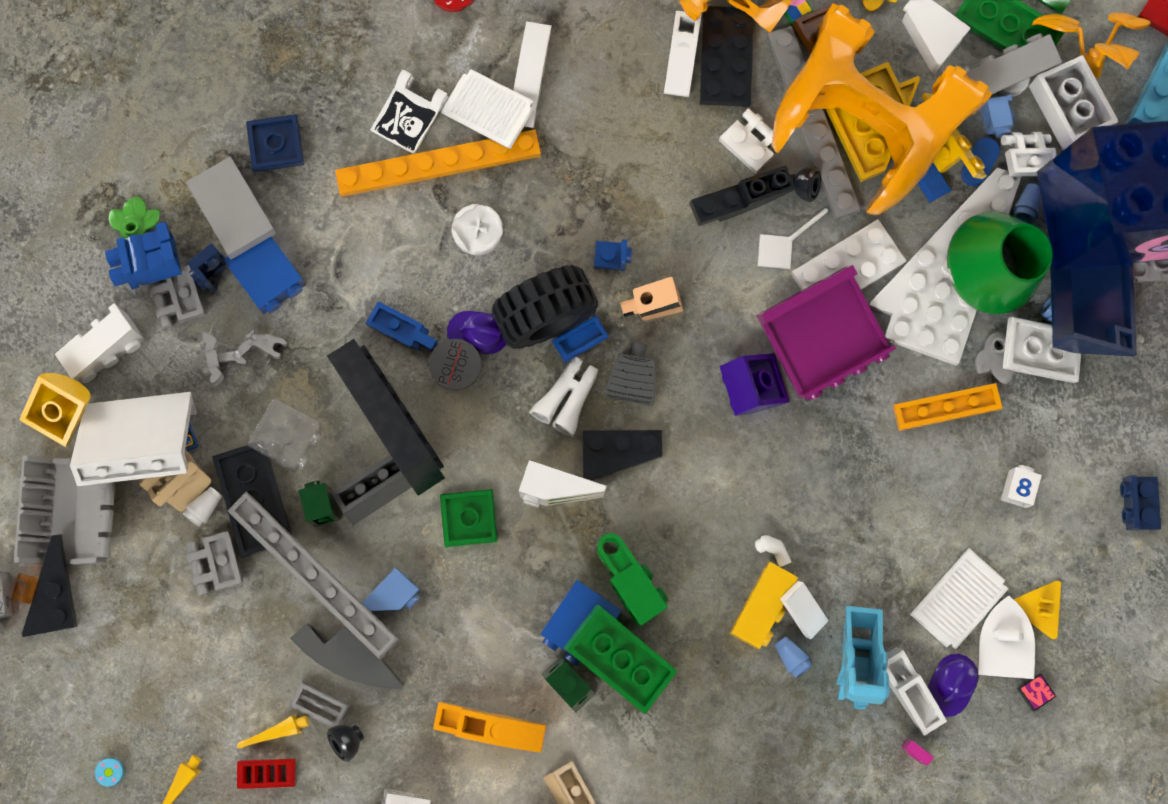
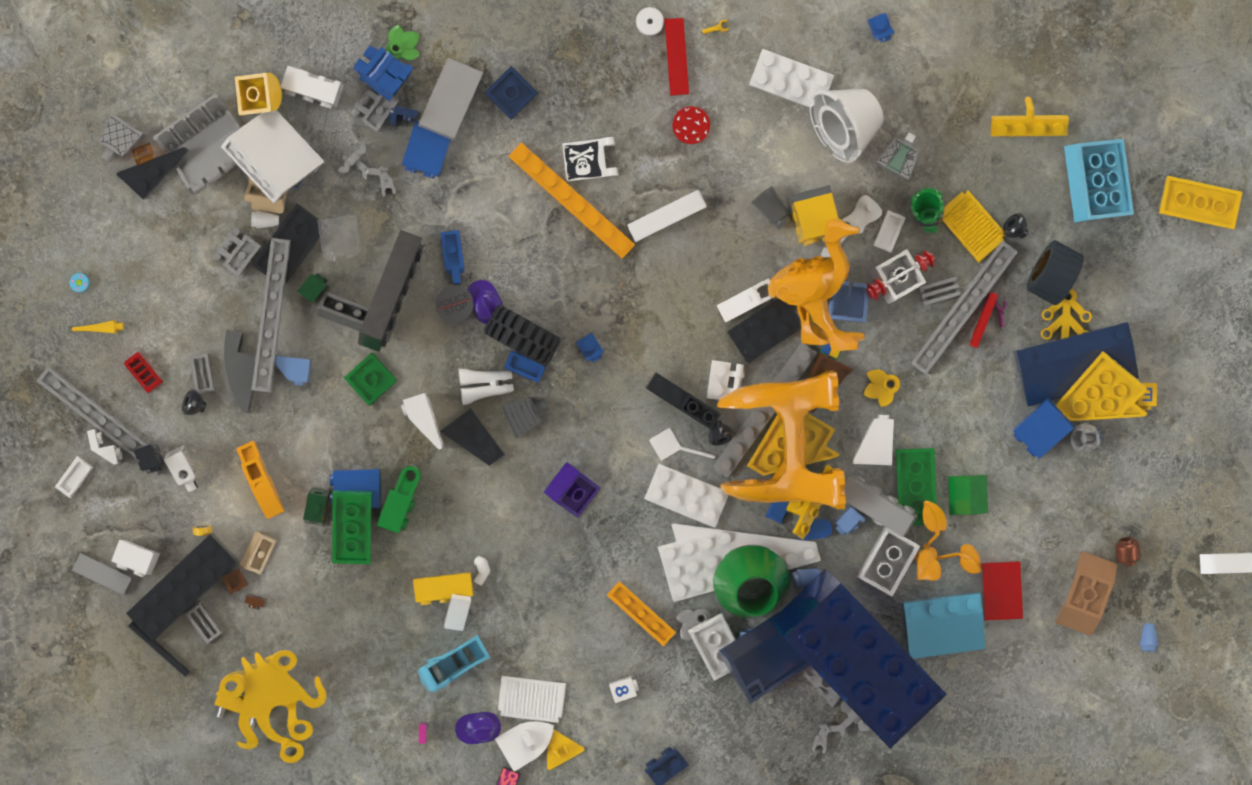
camera: 55 degrees right, 10 degrees up
(287, 727) = (176, 364): yellow piece -> none
(477, 229) = (547, 255): white tile -> none
(488, 108) = (626, 206): white window -> none
(664, 299) = (582, 399): light nougat torso -> none
(793, 657) = (426, 625): medium blue cone -> none
(825, 334) = (632, 510): magenta panel -> none
(913, 692) = (456, 705): white slope -> none
(1027, 161) = (833, 561): white plate -> none

